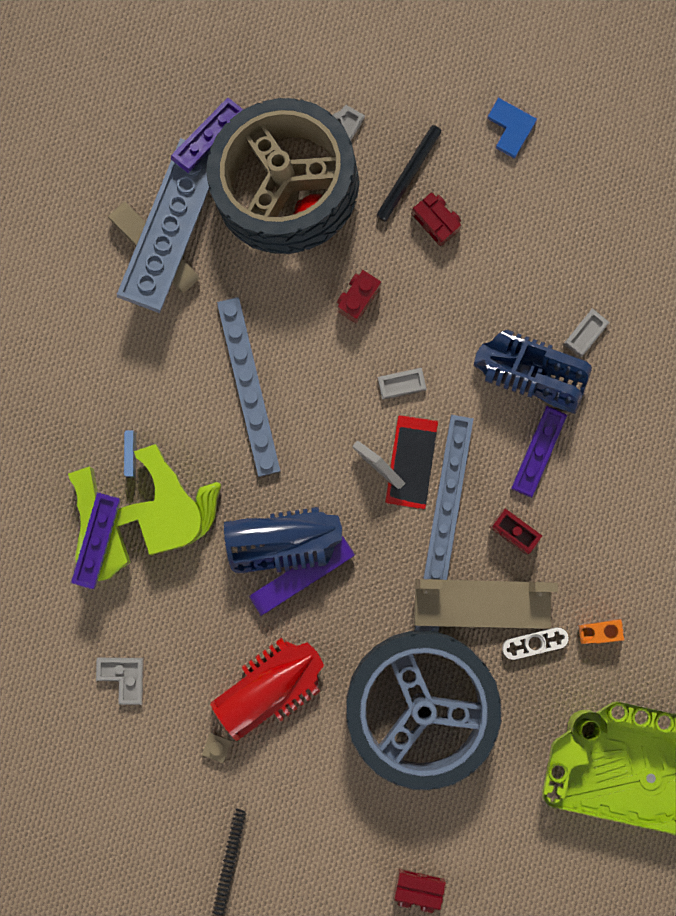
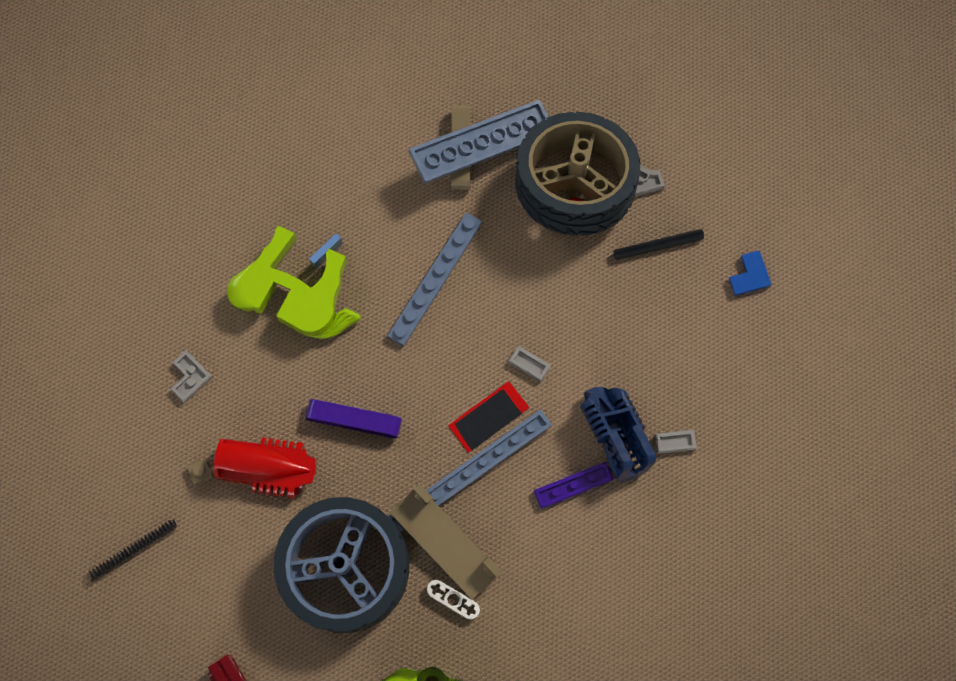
camera: 45 degrees right, 10 degrees down
(96, 541) = (253, 277): dark purple plate -> none
(201, 140) = (542, 110): dark purple plate -> none
(287, 541) = (363, 386): dark blue connector -> none
(359, 296) = (554, 287): dark red brick -> none
(378, 464) = (465, 396): light grey tile -> none
(436, 218) = (648, 286): dark red brick -> none
(516, 531) = (509, 517): dark red brick -> none
(601, 632) = (502, 633): orange leg -> none

